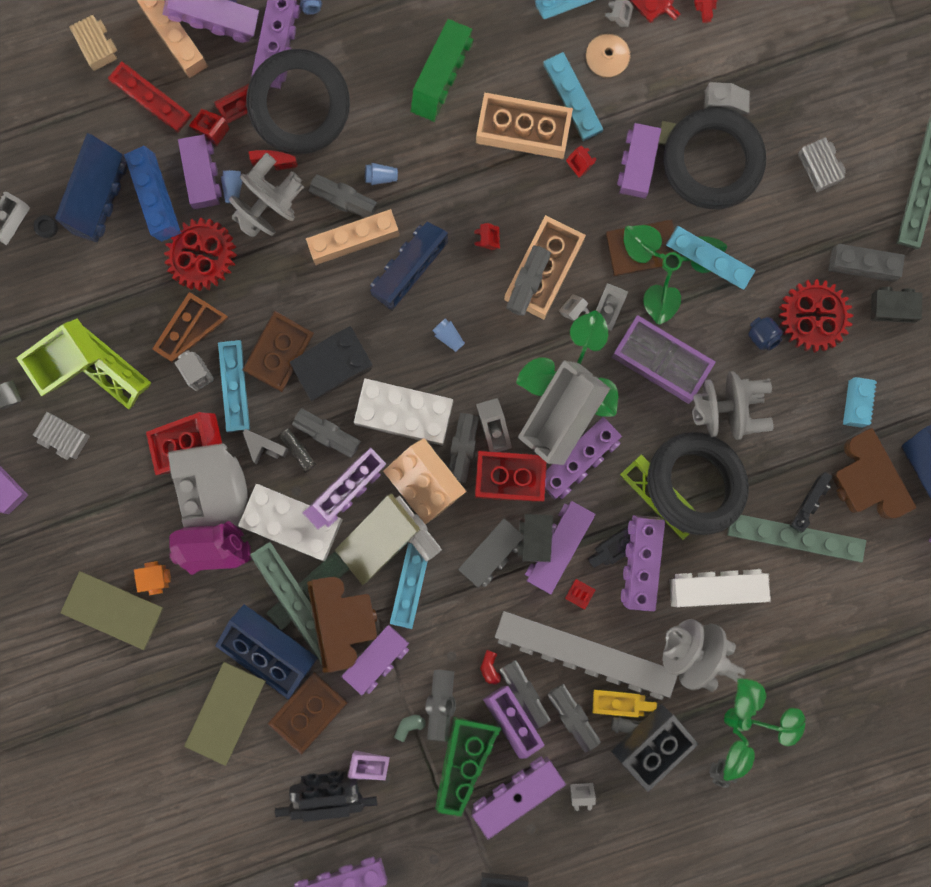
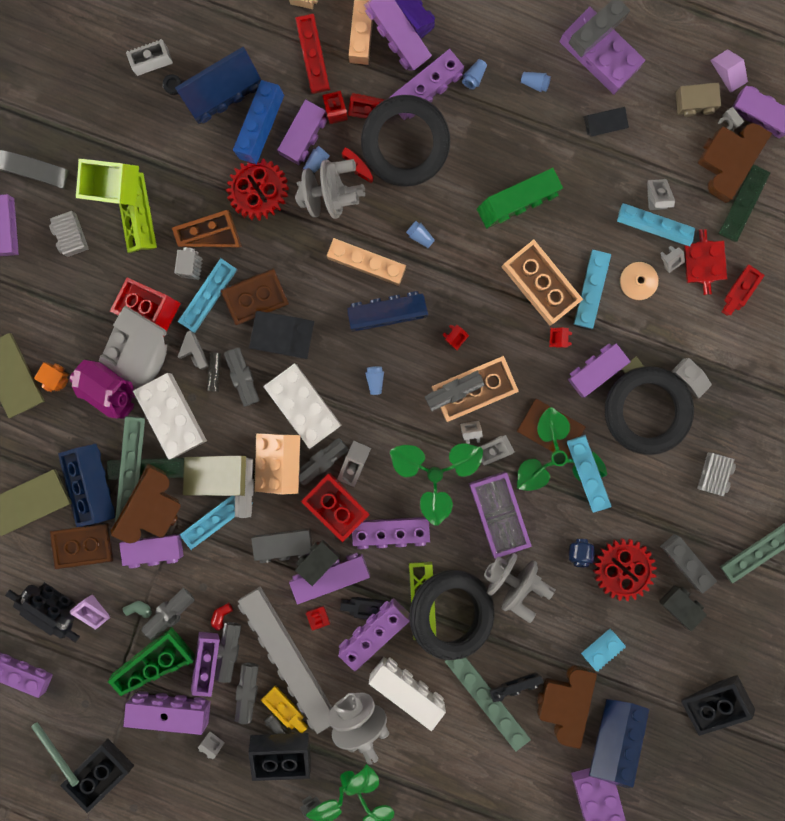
camera: 45 degrees right, 5 degrees up
(342, 196) = (382, 229): dark grey piece -> none
(344, 488) = (220, 425): medium lavender brick -> none
(563, 412) = (402, 497): light grey piece -> none

